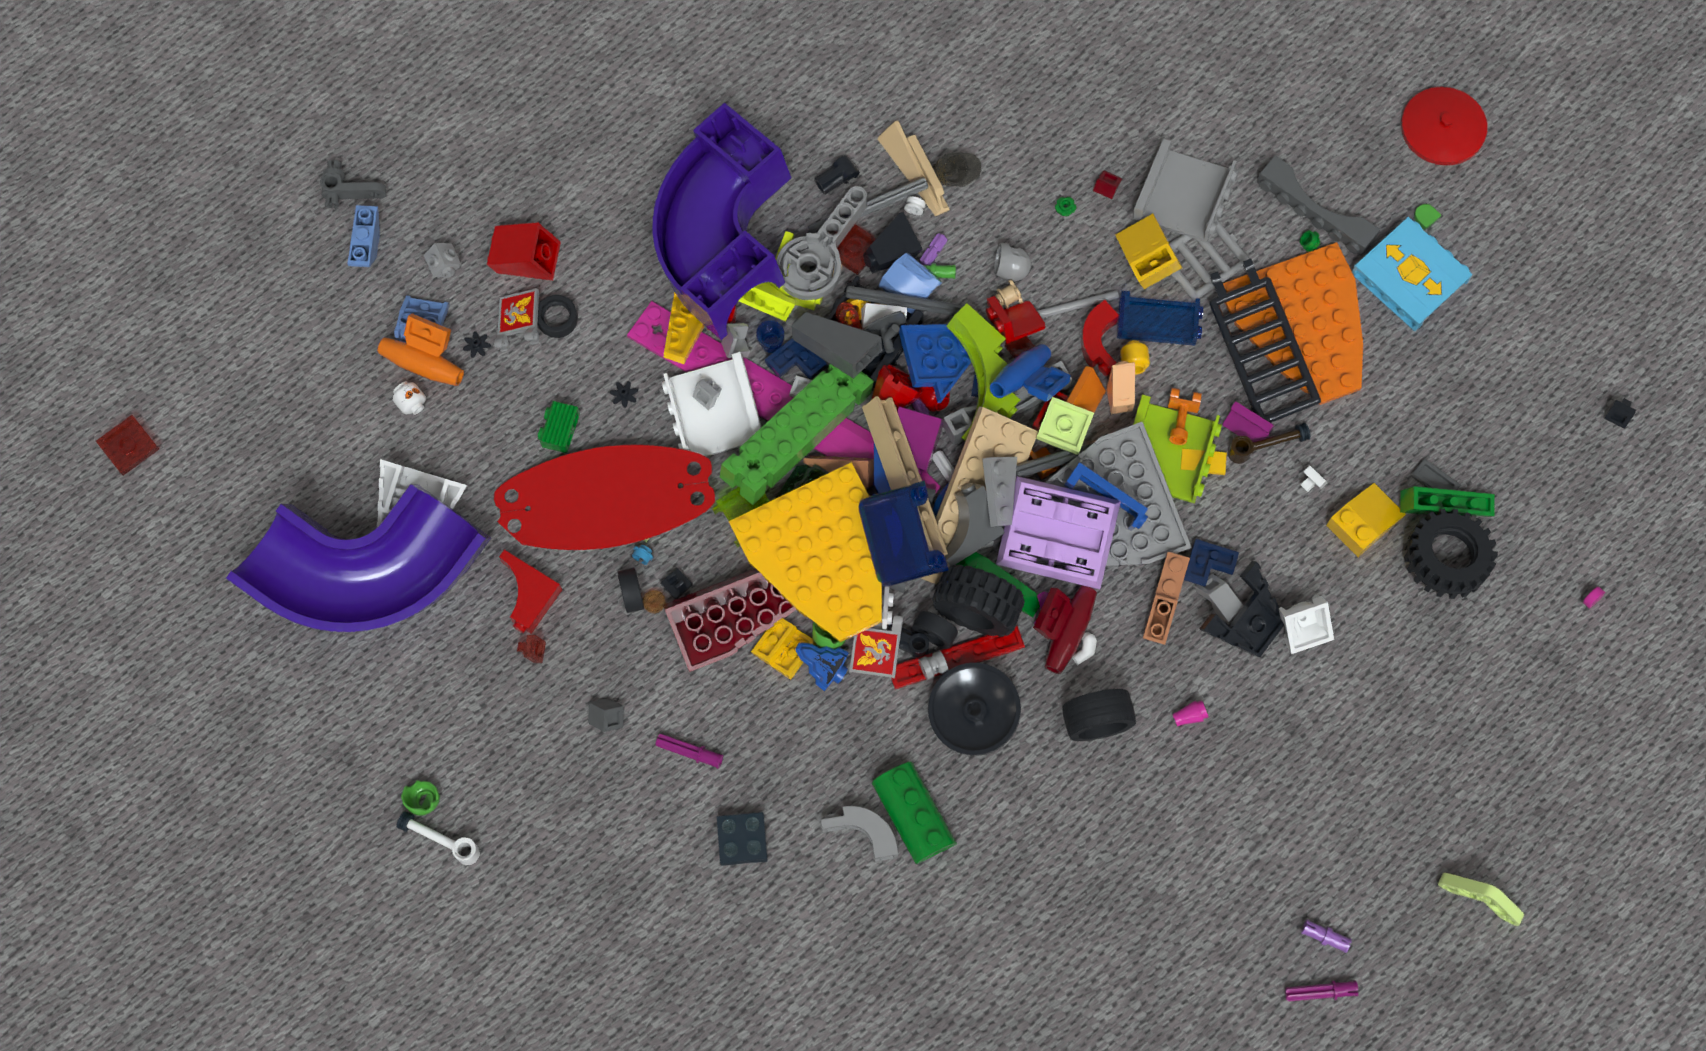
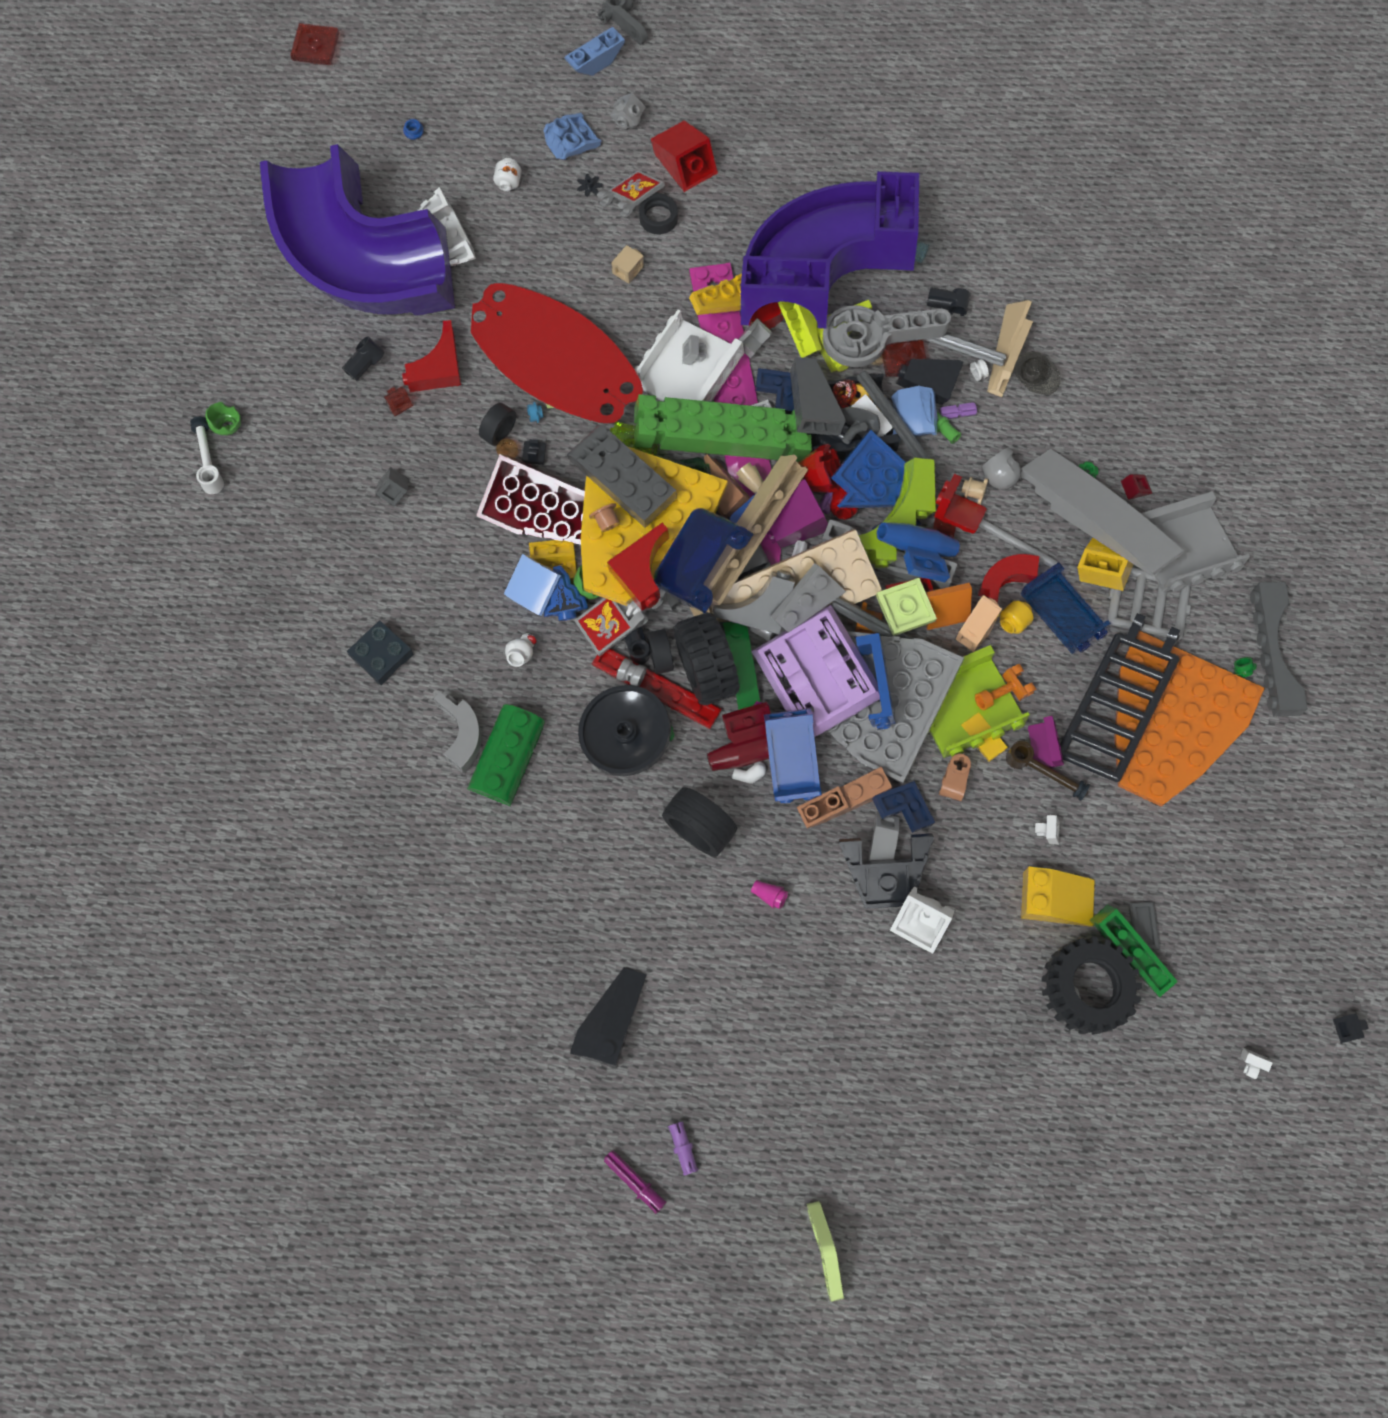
camera: 45 degrees right, 0 degrees up
(290, 429) = (413, 124): none -> blue plate
(422, 351) = (546, 152): orange plate -> none
(469, 638) = (366, 354): none -> black piece
(559, 426) = (577, 282): green brick -> none
(580, 376) = (627, 264): none -> tan brick
(624, 394) = (644, 304): black plant -> none
(689, 750) = (418, 572): magenta axle -> none
(770, 336) = (778, 356): clear blue piece -> none
(777, 533) = (622, 475): none -> dark grey hinge
(793, 677) = (532, 584): none -> light blue slope
(804, 575) = (605, 517): none -> nougat piece
(838, 731) = (520, 650): none -> white animal
(854, 443) = (750, 477): none -> tan cone
(866, 590) = (634, 566): none -> red arch
(1105, 605) = (792, 755): none -> panel
(1110, 228) = (1100, 512): none -> light grey slope
(1190, 914) = (607, 1025): none -> black wedge
(1219, 510) = (956, 780): none -> nougat piece
(1411, 273) = (1297, 763): medium azure panel -> none
(1426, 215) = (1358, 737): bright green tile -> none
(1591, 496) = (1254, 1062): none -> white tile
(1593, 597) = (1169, 1135): dark pink tile -> none

